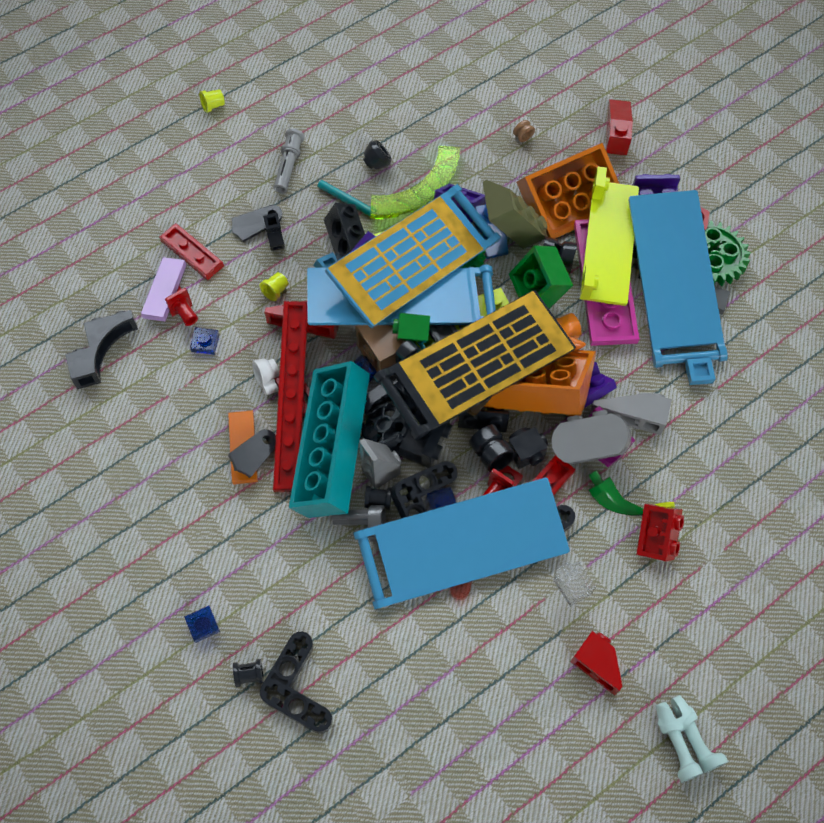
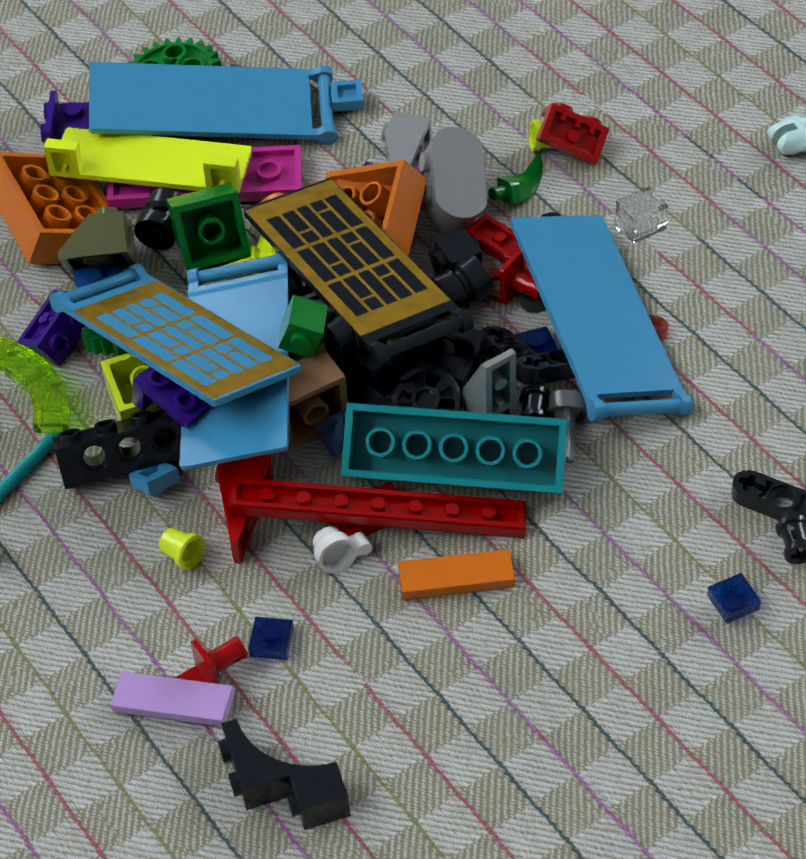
camera: 85 degrees left, 15 degrees down
(191, 251) = (98, 672): tile -> none
(252, 223) = (53, 585): piece -> none
(253, 452) = (470, 550): black piece -> none
(273, 231) = (80, 548): black piece -> none
(599, 661) = (736, 195): red slope -> none

